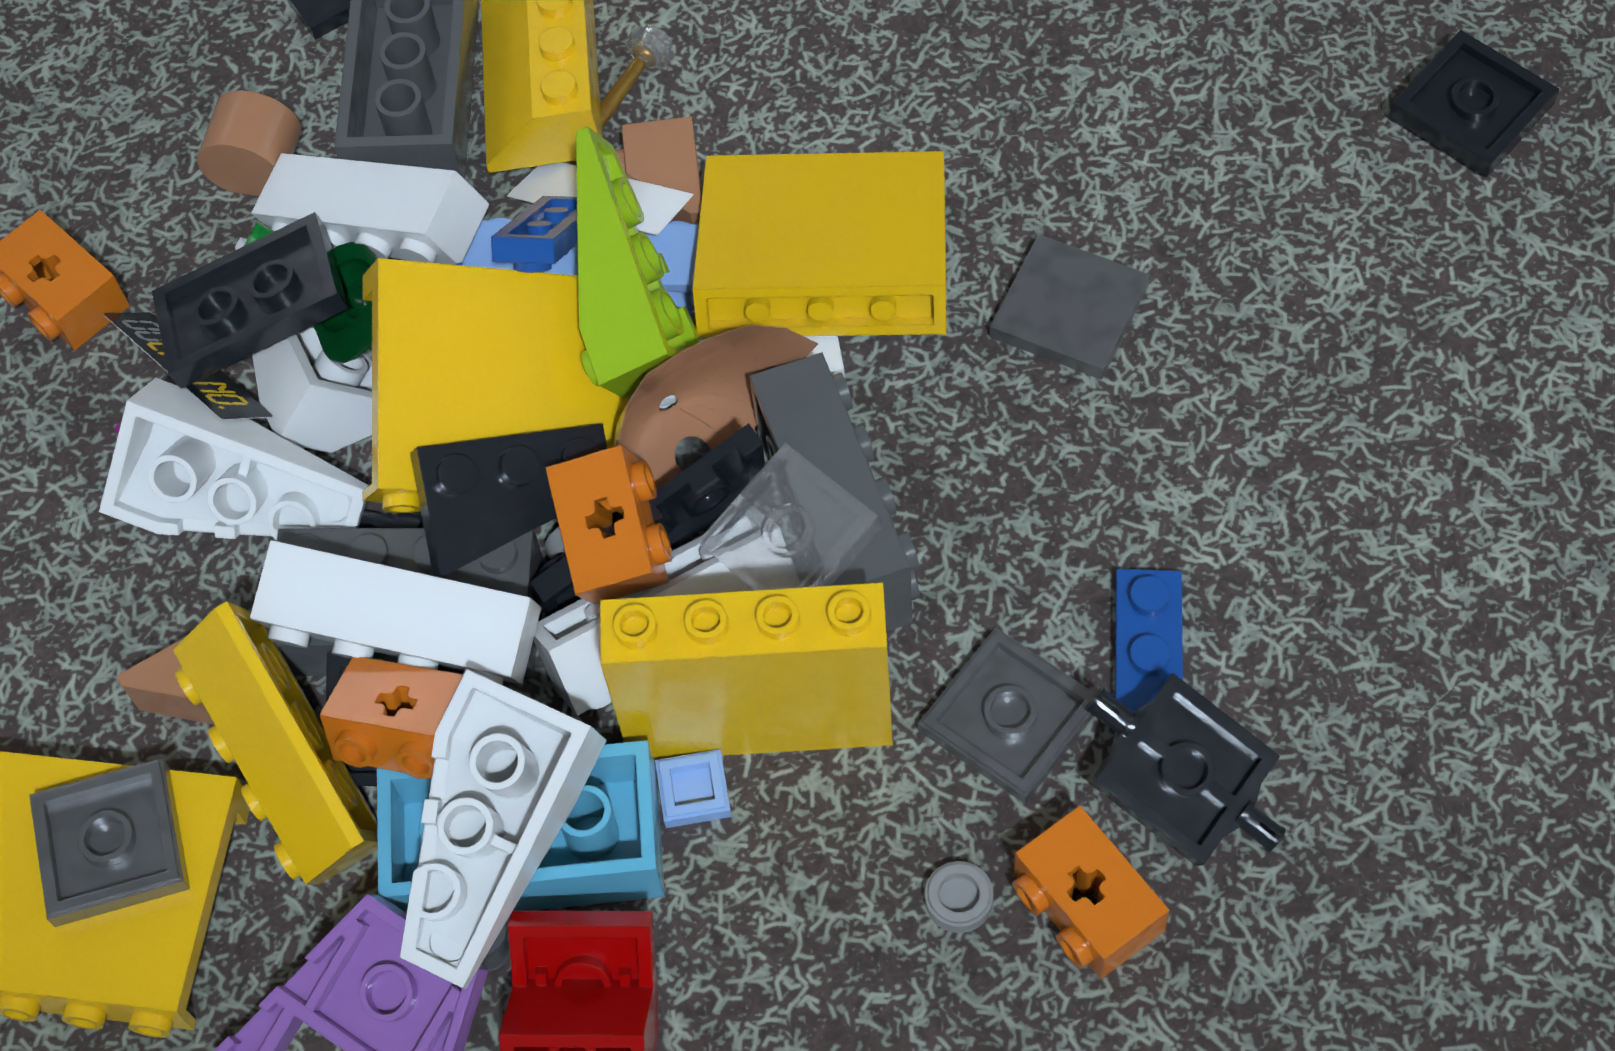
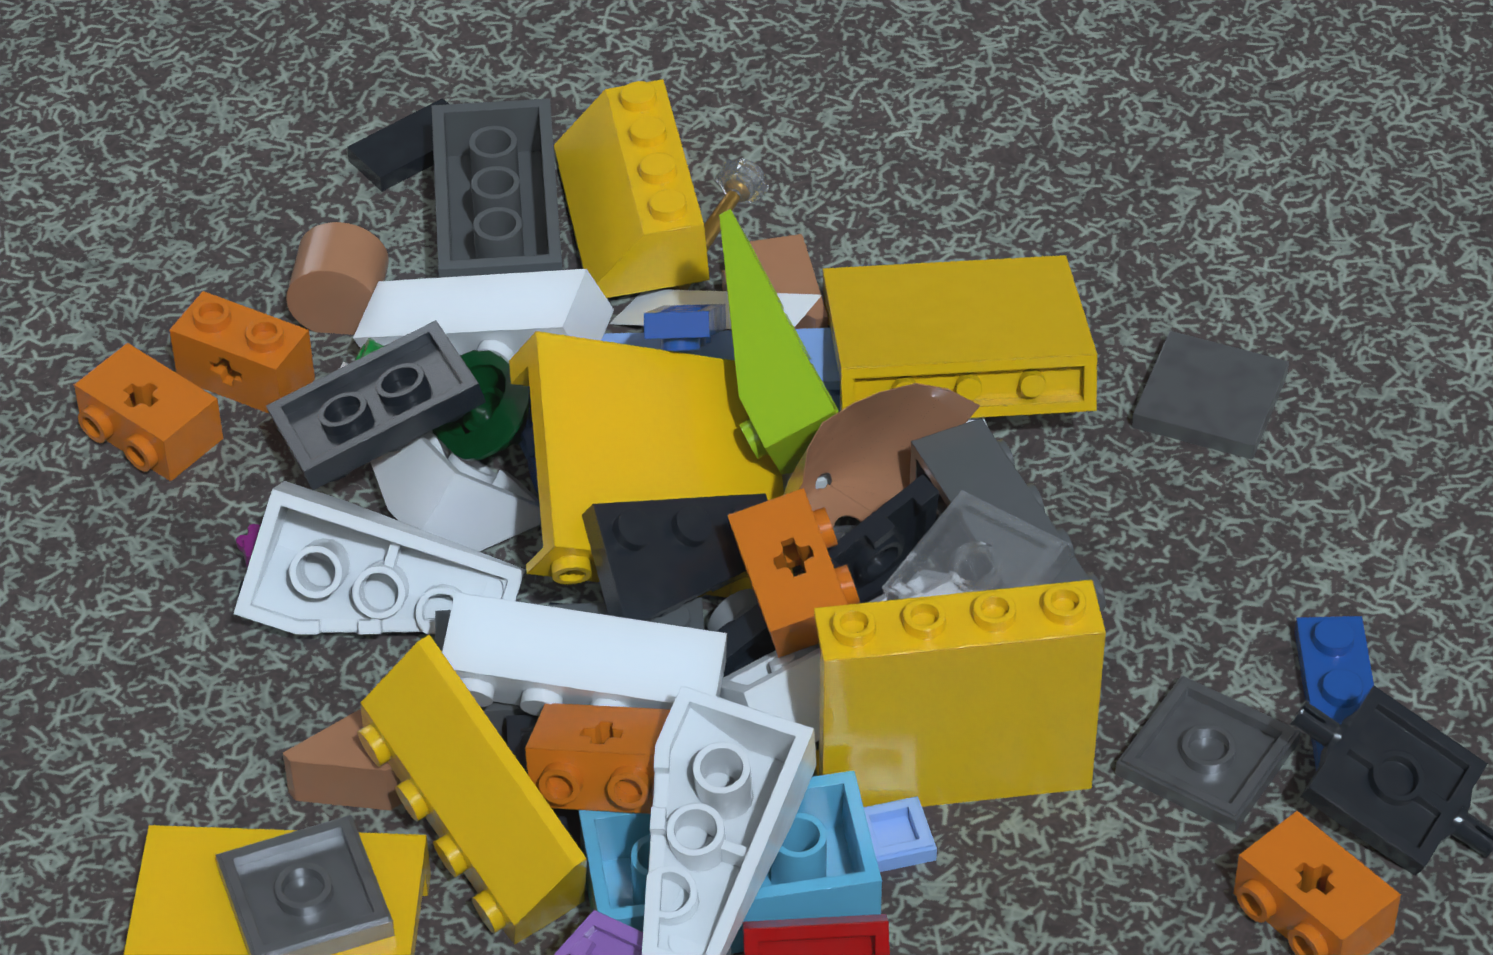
camera: 10 degrees left, 15 degrees down
(150, 220) = (240, 352): none -> orange brick
(216, 391) = (294, 472): black sticker -> none
(959, 897) = (1182, 913): light grey tile -> none

